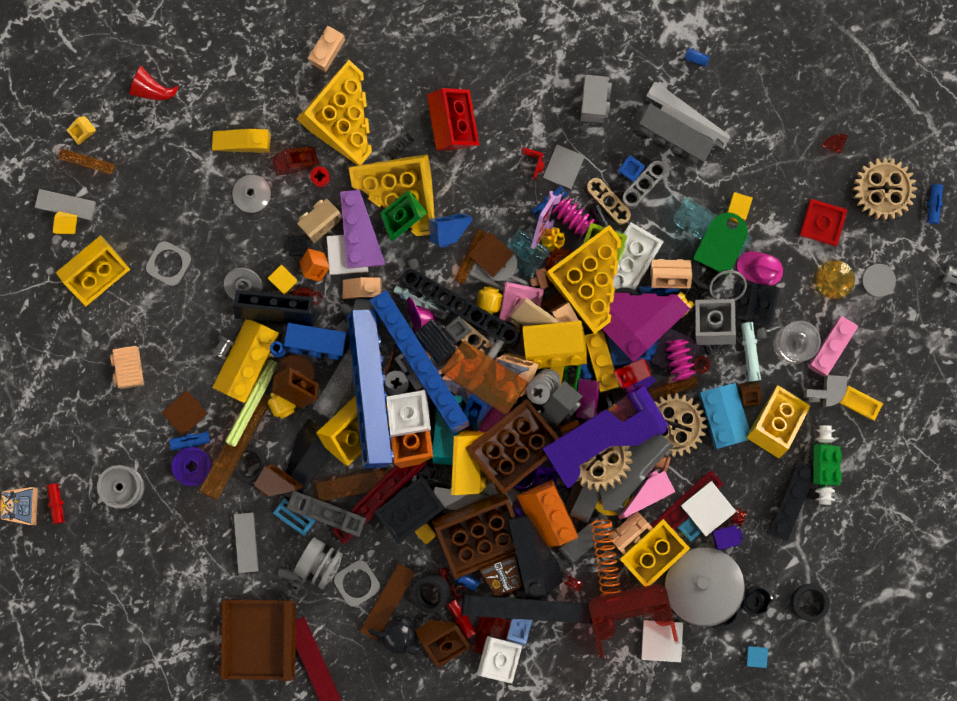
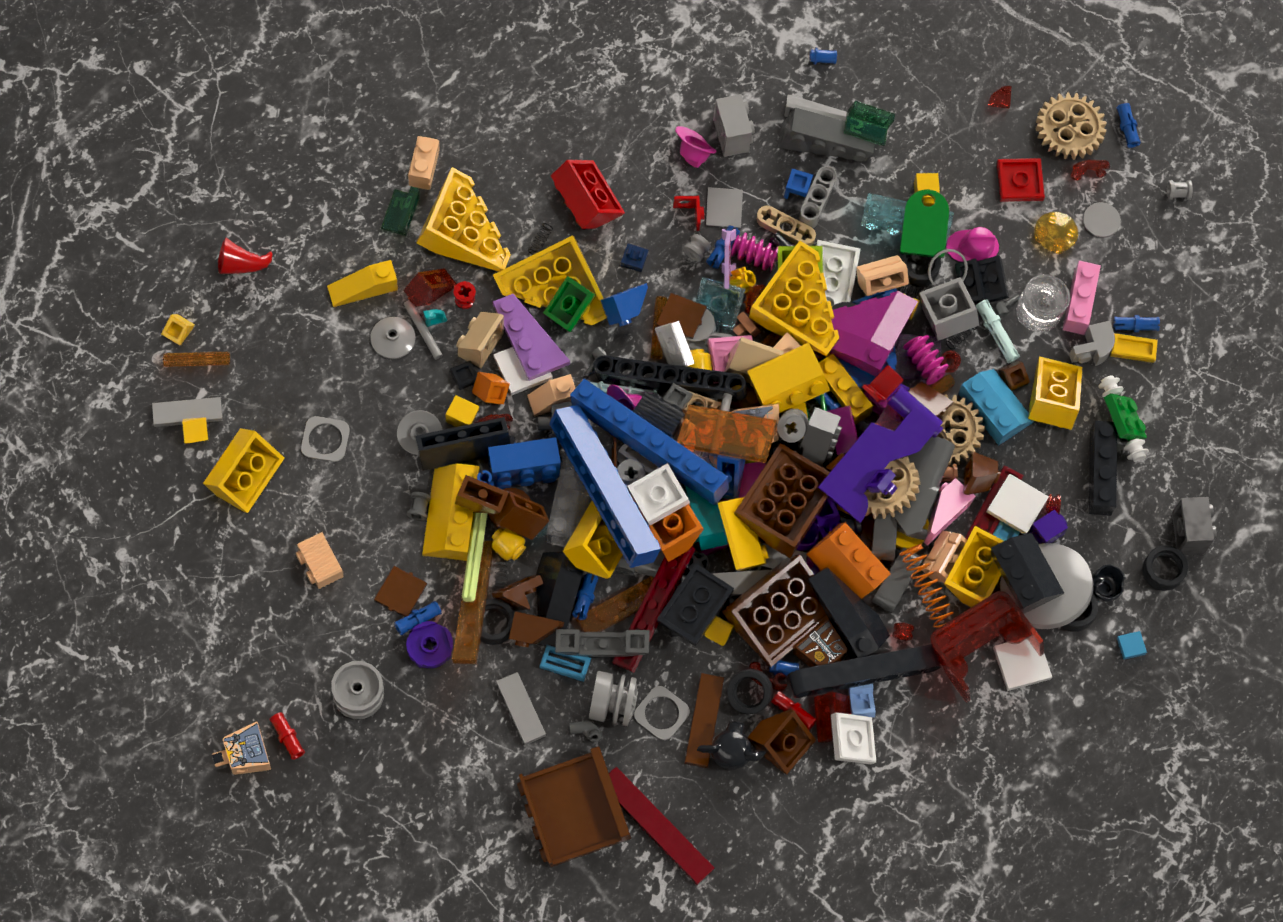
camera: 30 degrees left, 15 degrees down
(266, 365) = (480, 496): none -> reddish brown slope
(271, 447) = (516, 592): none -> reddish brown slope
(278, 196) = (426, 335): none -> light grey bar
(289, 188) = (434, 317): none -> teal tile
(294, 85) = (401, 211): none -> clear green panel
(327, 469) = (585, 596): none -> blue pin
(472, 188) = (634, 257): none -> dark blue tile
(473, 281) = (674, 344): none -> white tile
(526, 197) = (696, 247): none -> light grey wheel
(557, 104) = (693, 146): none -> dark pink piece
(595, 463) = (882, 482): none -> dark purple tile
(666, 397) = (931, 398): none -> piece
(686, 474) = (980, 474): none -> reddish brown slope
(689, 576) = (1026, 572): none -> black slope
(708, 135) = (868, 122): none -> clear green panel
(846, 578) = (1193, 525): none -> flat silver brick
(871, 383) = (1136, 323): none -> blue pin
(878, 229) = (1096, 165): none -> clear red piece

